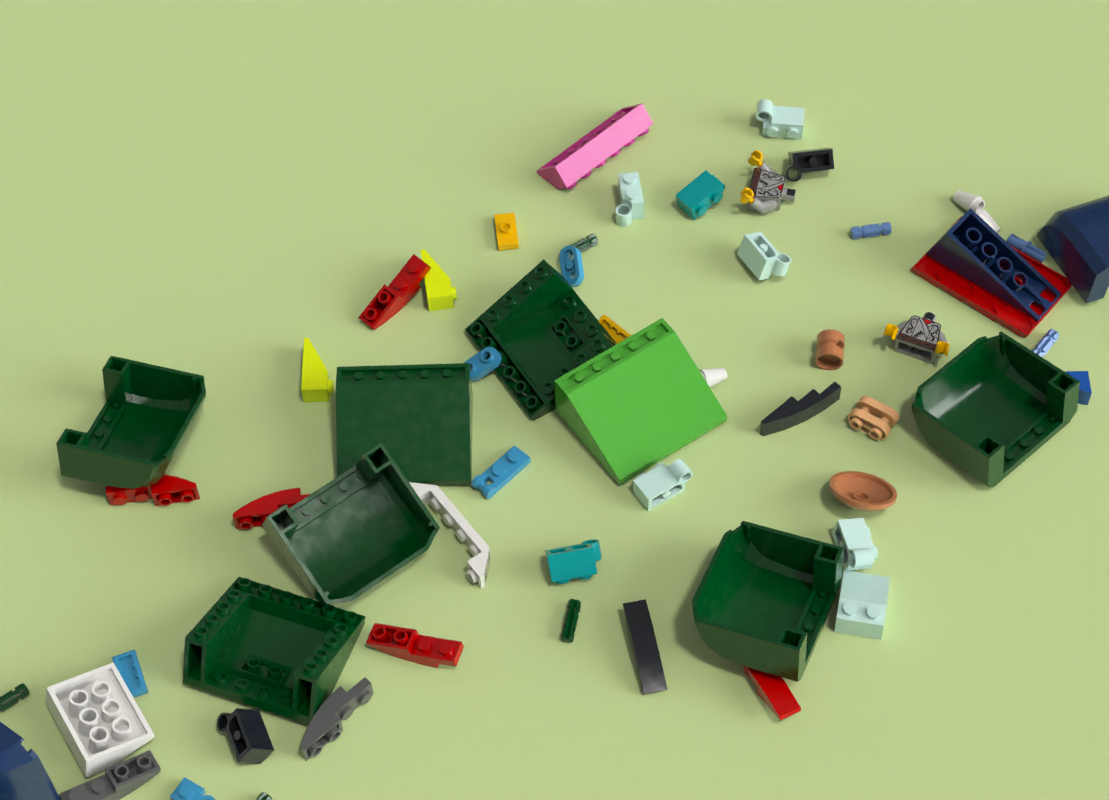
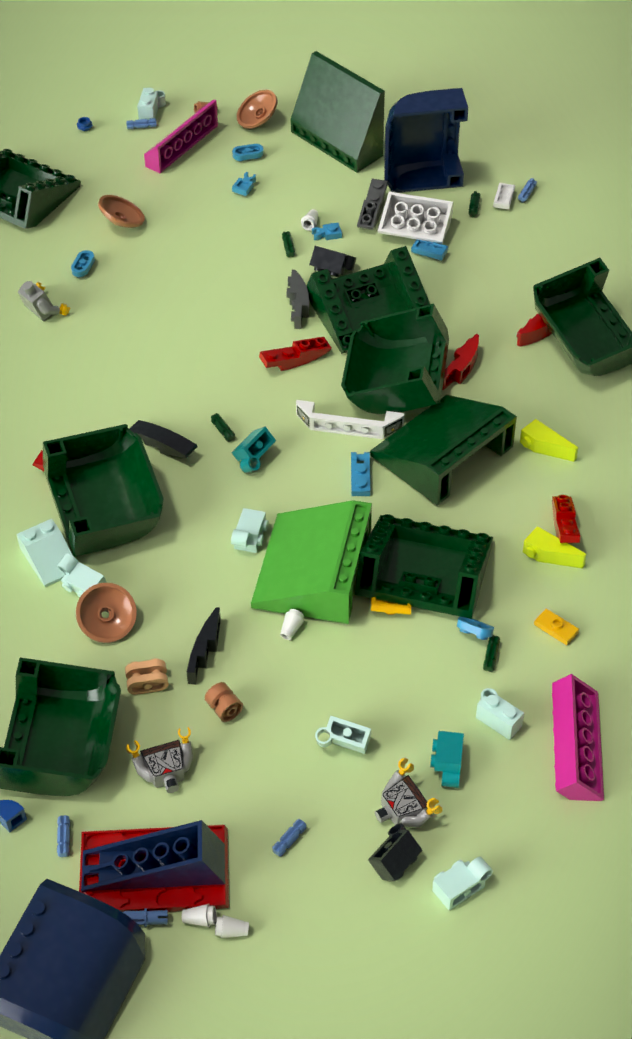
camera: 135 degrees right, 5 degrees down
(482, 366) = (451, 518): dark azure plate -> none

